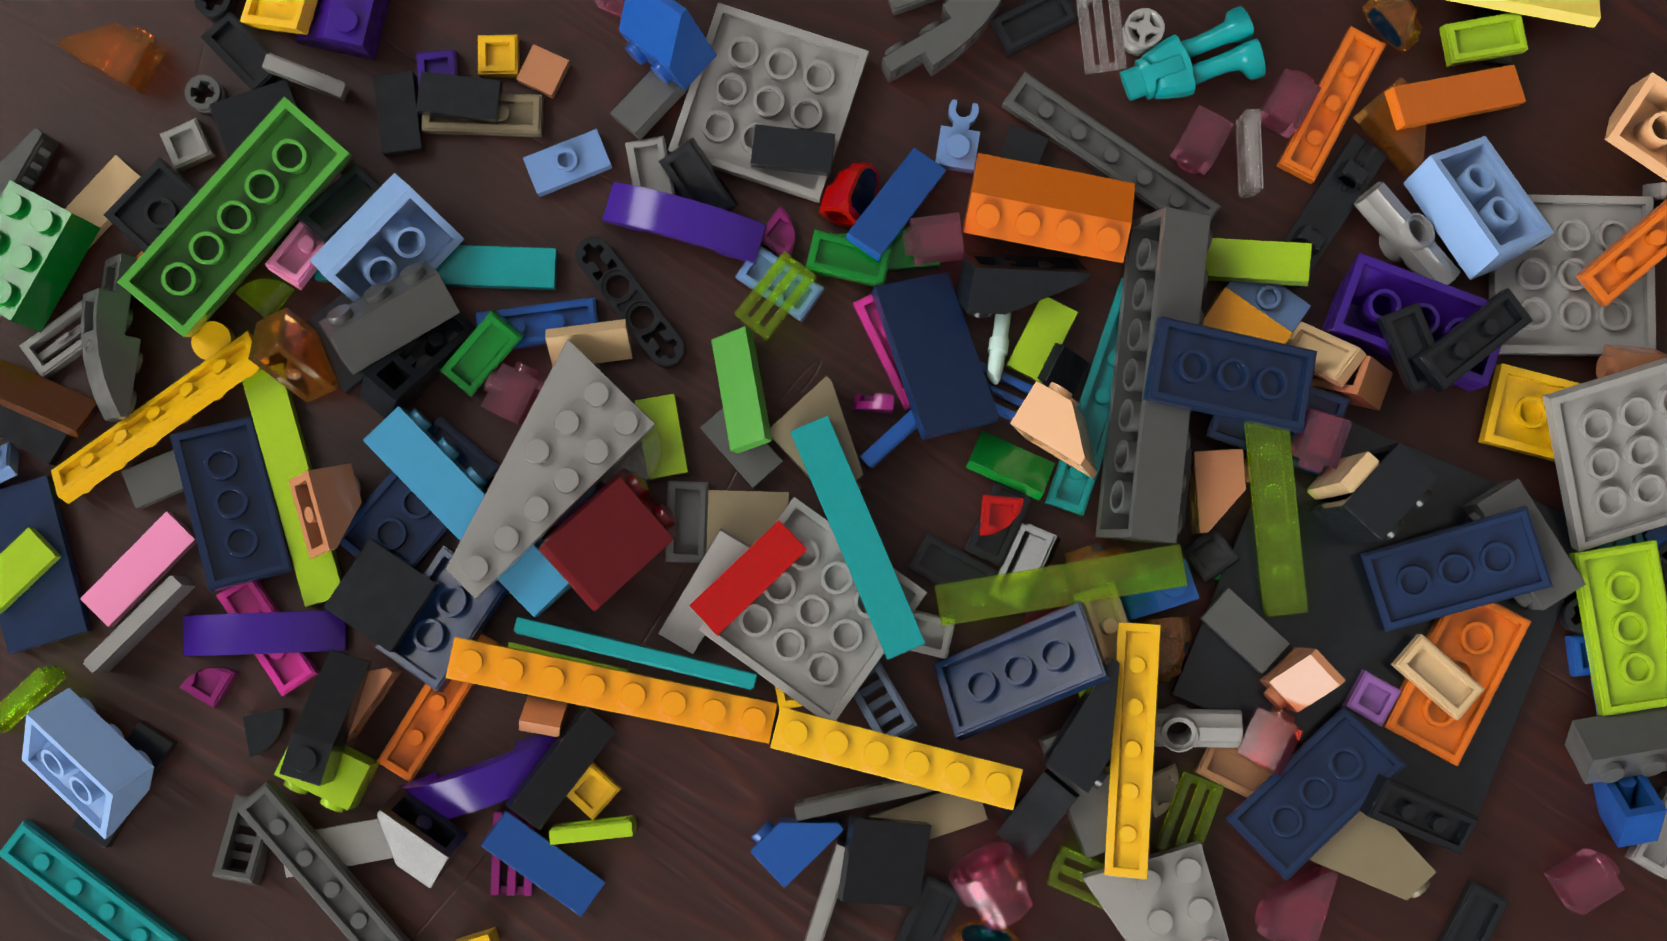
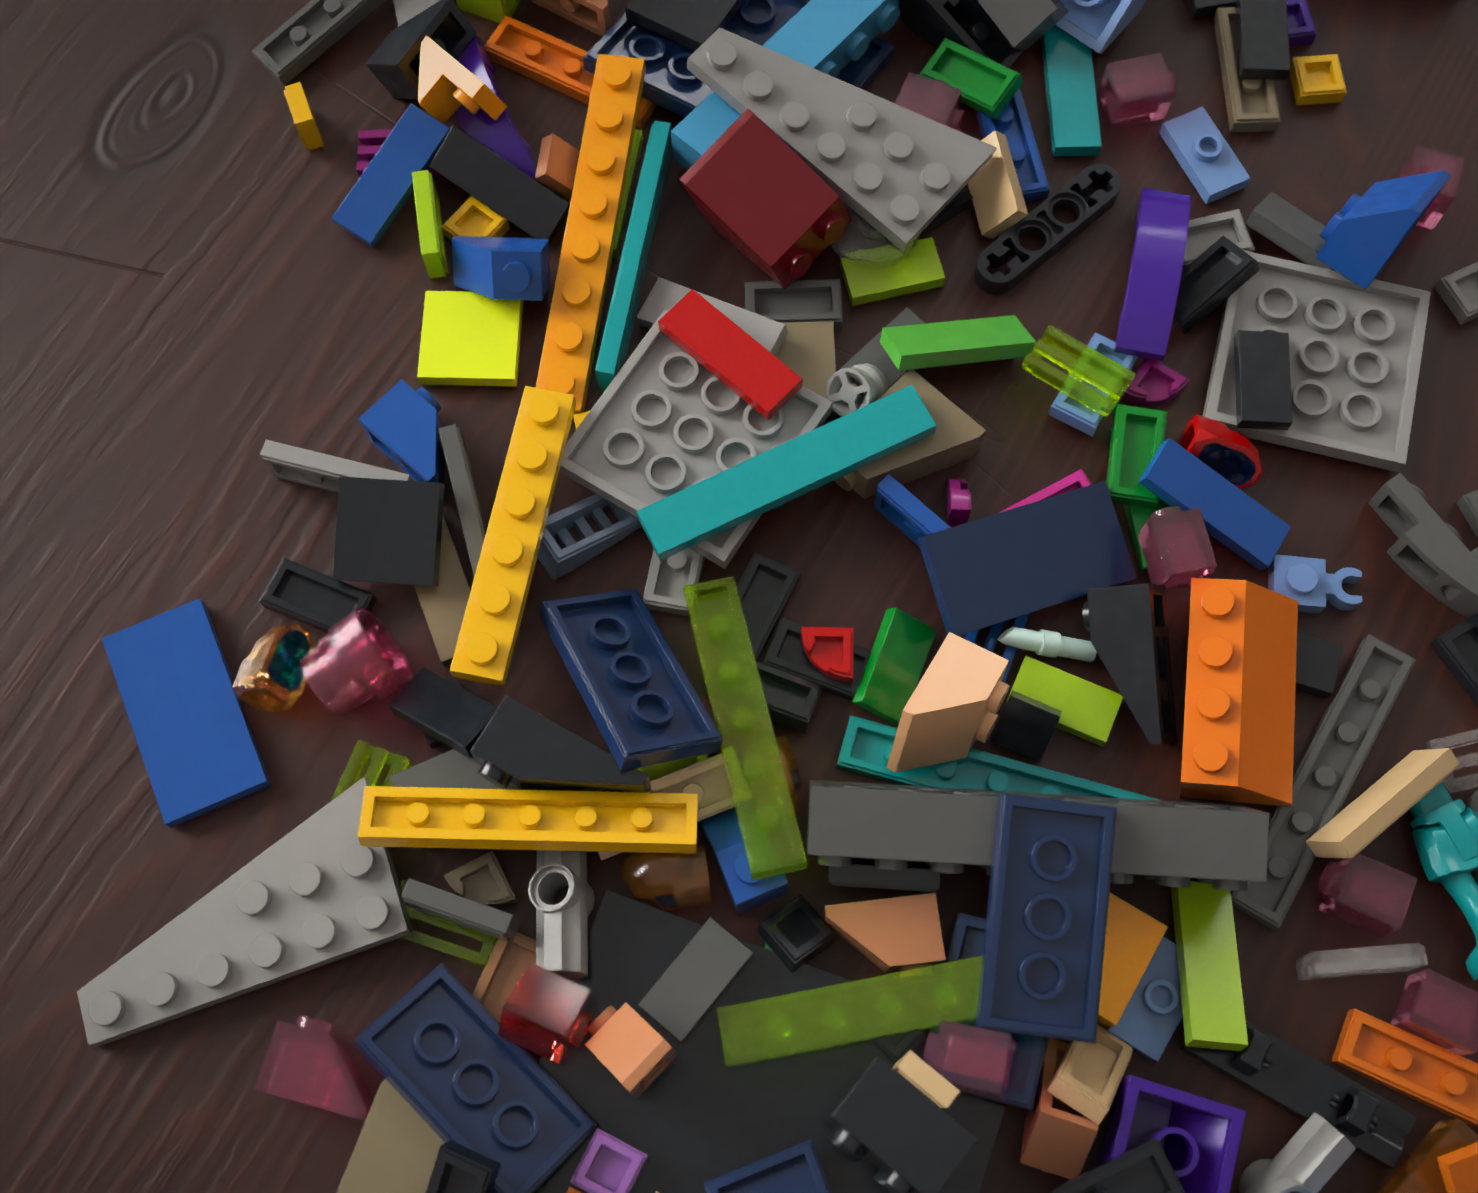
camera: 90 degrees right, 15 degrees down
(465, 810) = (448, 84): none -> light orange slope
(504, 210) = (1137, 90): none -> clear pink brick
(543, 71) = (1308, 123): nougat tile -> none
(643, 766) = (502, 266): none -> blue slope
(700, 795) = (469, 340): none -> neon yellow tile
(779, 475) = (845, 392): none -> light grey wheel
(1138, 118) = (1382, 803): none -> tan tile
(1191, 803) = (460, 910): none -> dark grey tile

